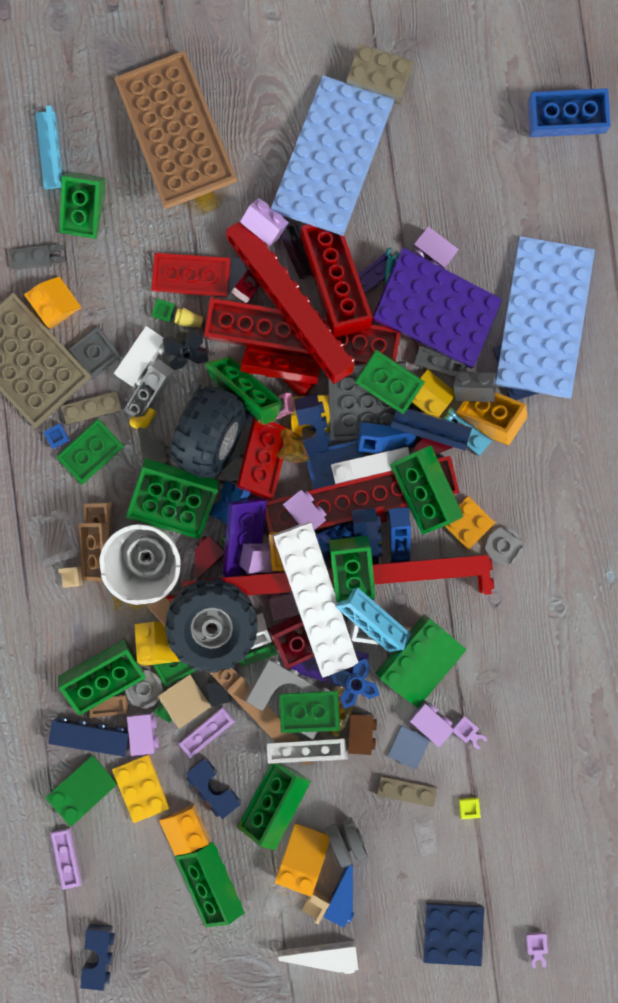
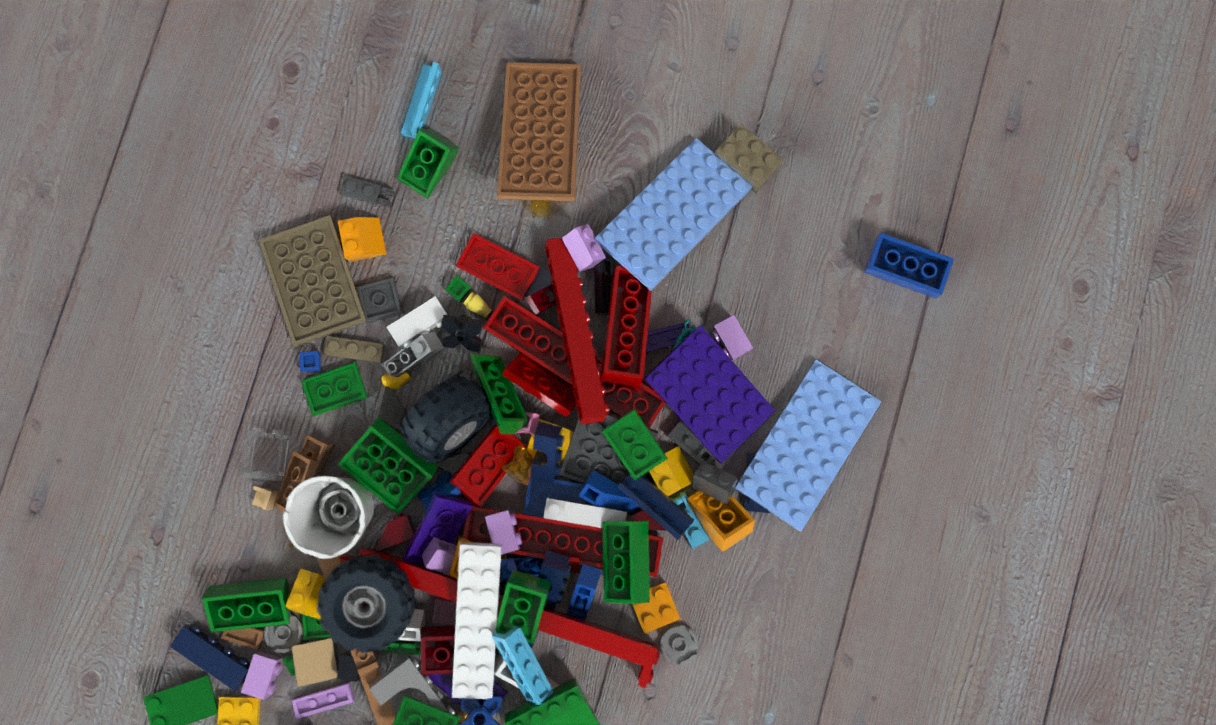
camera: 30 degrees right, 5 degrees down
(299, 388) = (551, 414): red cone -> none

